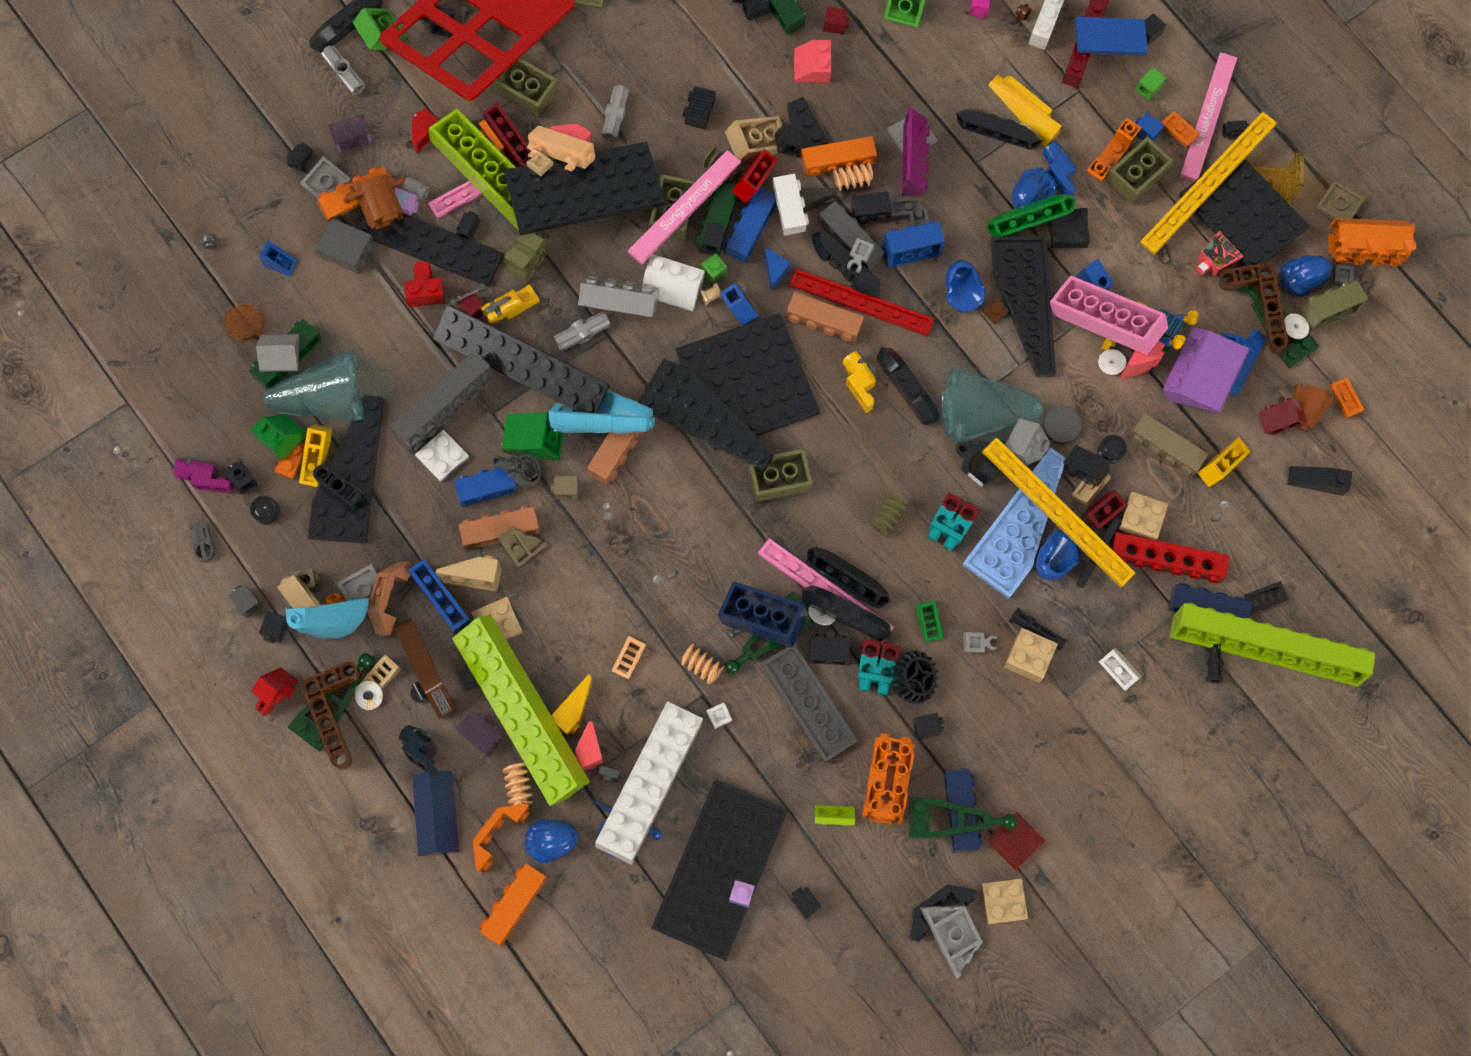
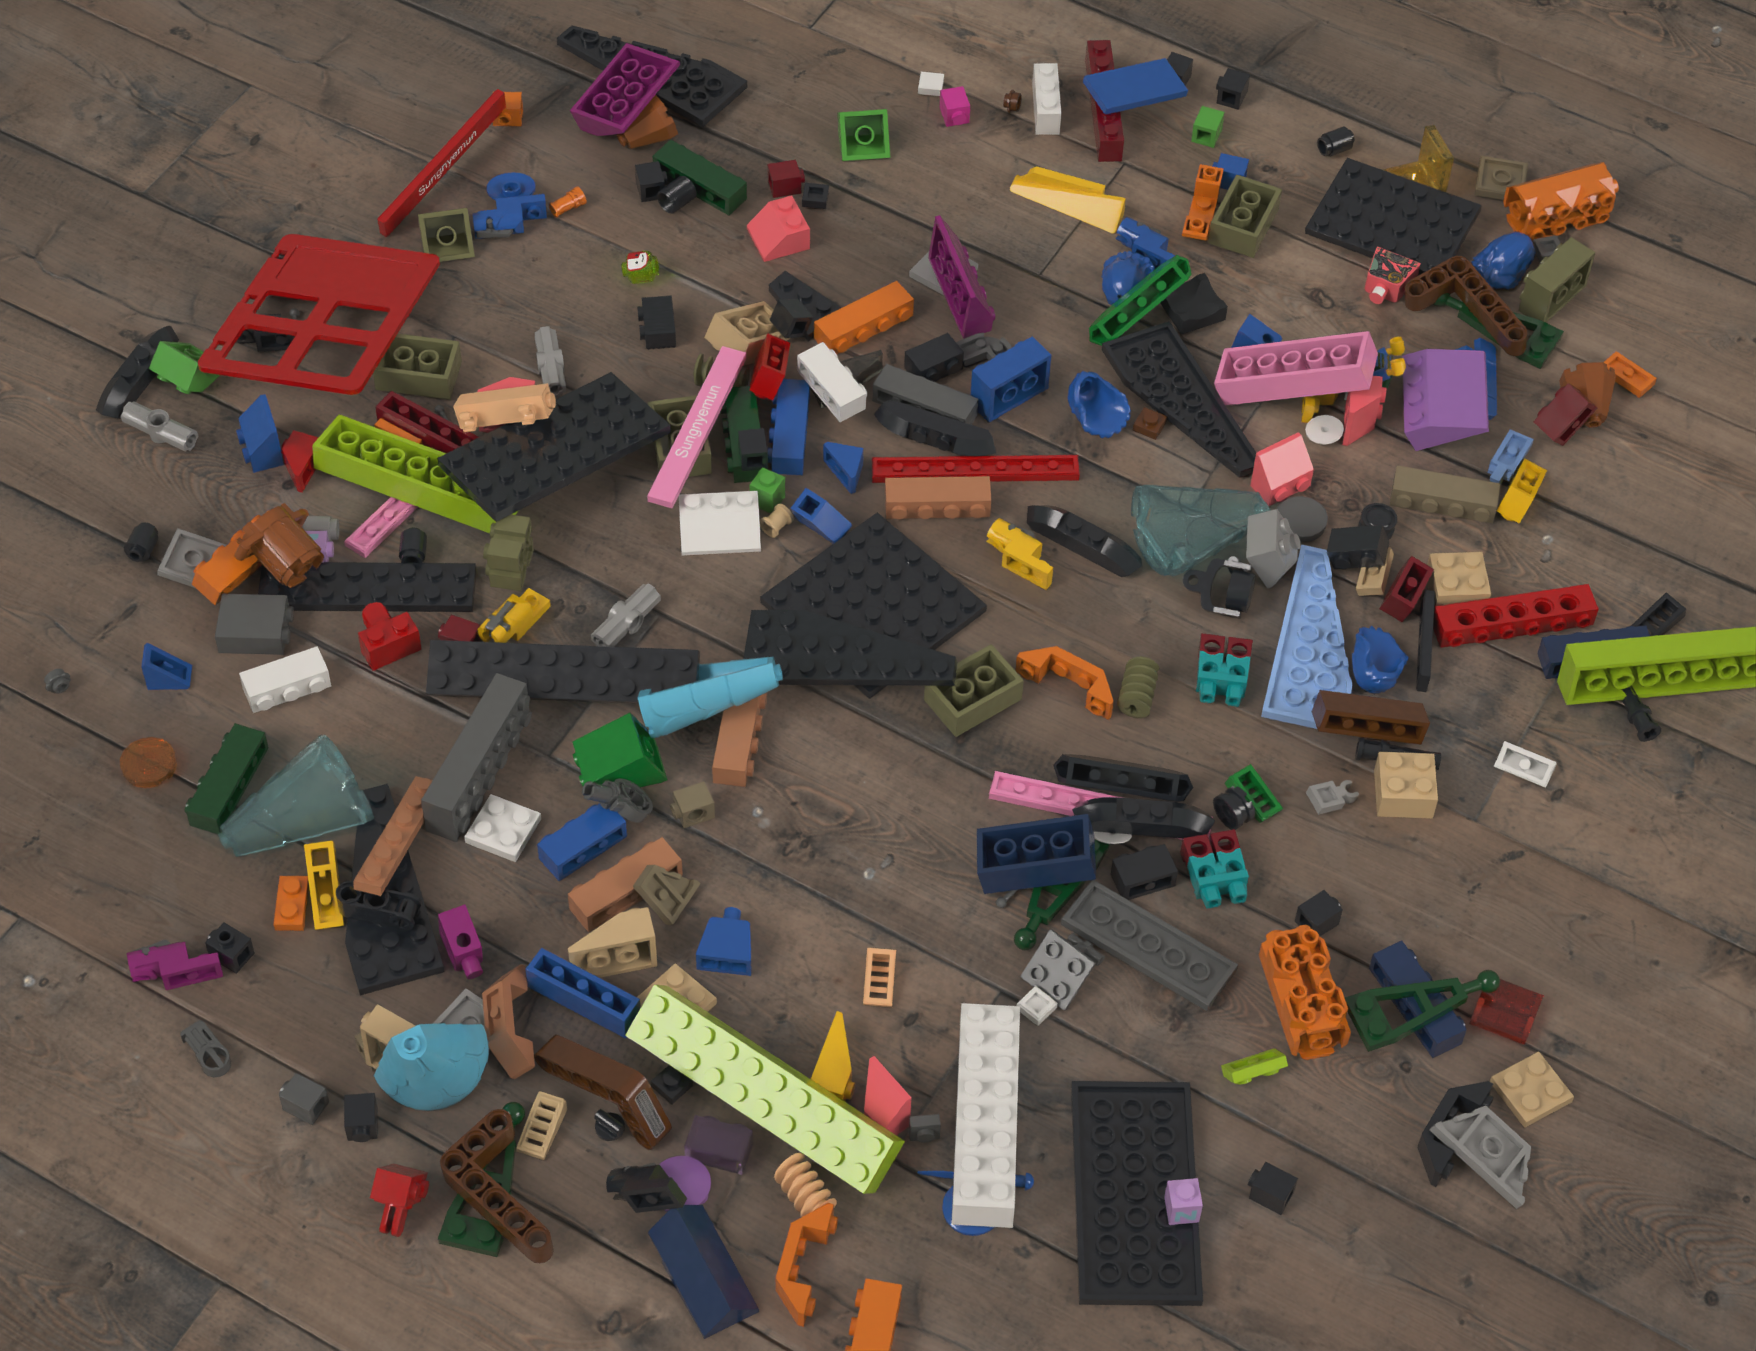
camera: 20 degrees left, 20 degrees down
(265, 510) = (281, 977): black wheel -> none
(278, 352) = (220, 773): light grey slope -> none
(278, 434) = (260, 877): green slope -> none
(348, 295) = (285, 679): none -> white brick
(350, 133) = (201, 493): clear purple brick -> none
(366, 444) = (393, 841): none -> nougat plate
(368, 695) = (536, 1156): white piece -> none
(377, 524) = (461, 941): none -> magenta torso
(403, 103) = (259, 436): none -> blue slope
(450, 749) = (690, 1176): none -> medium lavender dish
(481, 287) = (467, 607): dark grey hinge -> none
(540, 163) = (484, 433): tan tile -> none
(544, 596) = (726, 945): none -> blue torso
(550, 840) = (883, 1241): blue piece -> none
(618, 296) = (658, 556): light grey brick -> none
(701, 664) = (983, 948): light nougat piece -> none
(706, 58) = (640, 267): none -> clear neon green head
(743, 698) = (1061, 966): none -> plate
(831, 470) = (1036, 663): none -> orange slope
(850, 42) = (815, 195): none -> black plate
(853, 176) = (894, 332): light nougat piece -> none
(861, 253) = (949, 406): light grey plate -> none
(908, 628) = (1233, 808): none -> black wheel
(922, 685) = (1272, 858): black gear -> none
(998, 128) = (1048, 229): black brick -> none
(1029, 599) = (1370, 717): none -> reddish brown brick
(1058, 512) = (1354, 602): yellow plate -> none
(1064, 386) = (1282, 470): none -> coral slope
(1180, 129) = (1270, 161): orange plate -> none
(1184, 57) = (1232, 88): none -> black brick
(1208, 116) = (1295, 141): bright pink tile -> none
(1208, 183) = (1335, 202): yellow plate -> none
(1228, 432) = (1509, 456): none -> medium blue hinge
(1296, 326) = (1528, 315): white piece -> none
(1320, 479) = (1651, 468): black slope -> none

